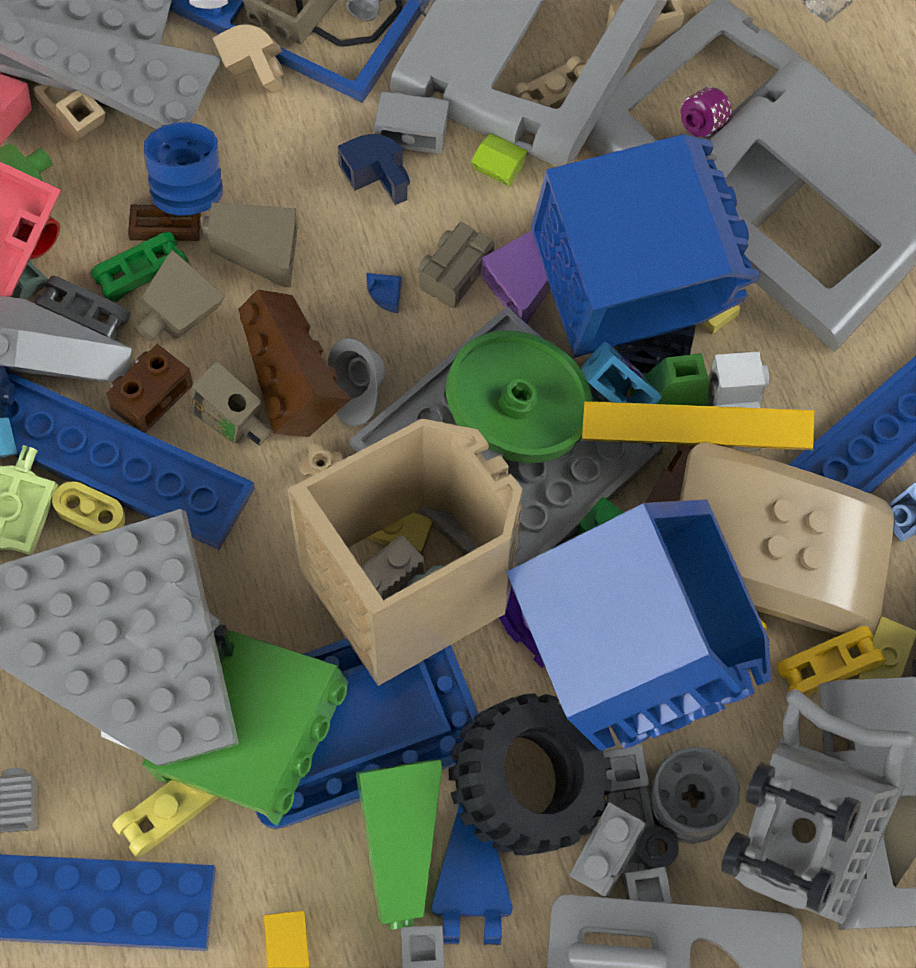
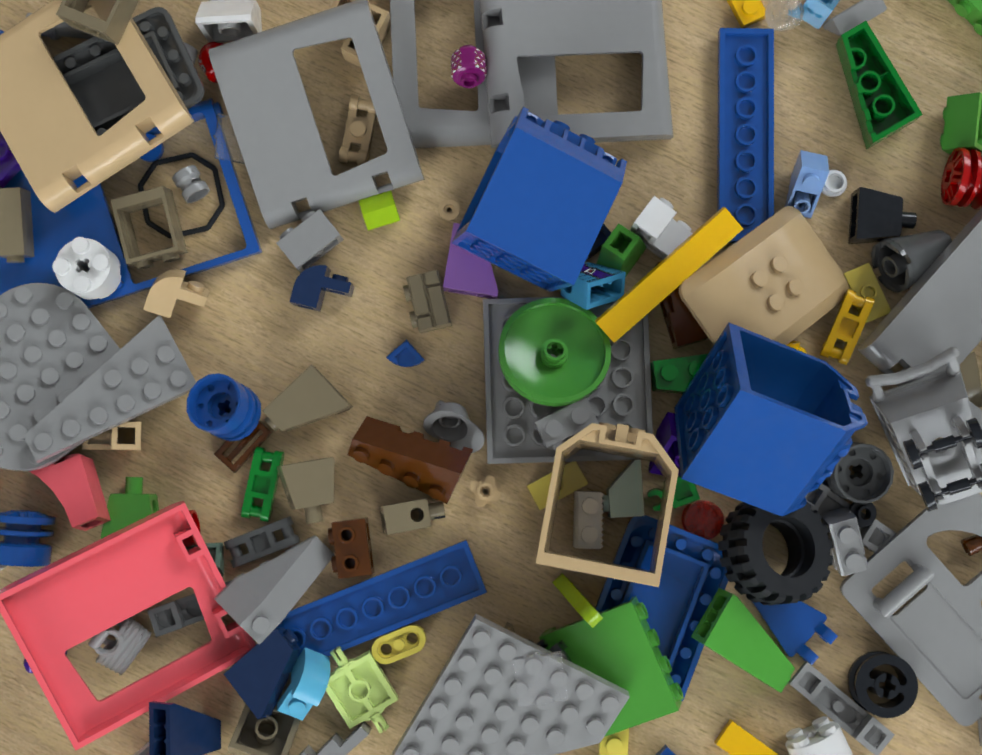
camera: 40 degrees left, 20 degrees up
(289, 625) = (577, 600): none -> lime beam
(492, 684) = (702, 519): none -> clear red wheel
(497, 644) = (684, 493): none -> green plate

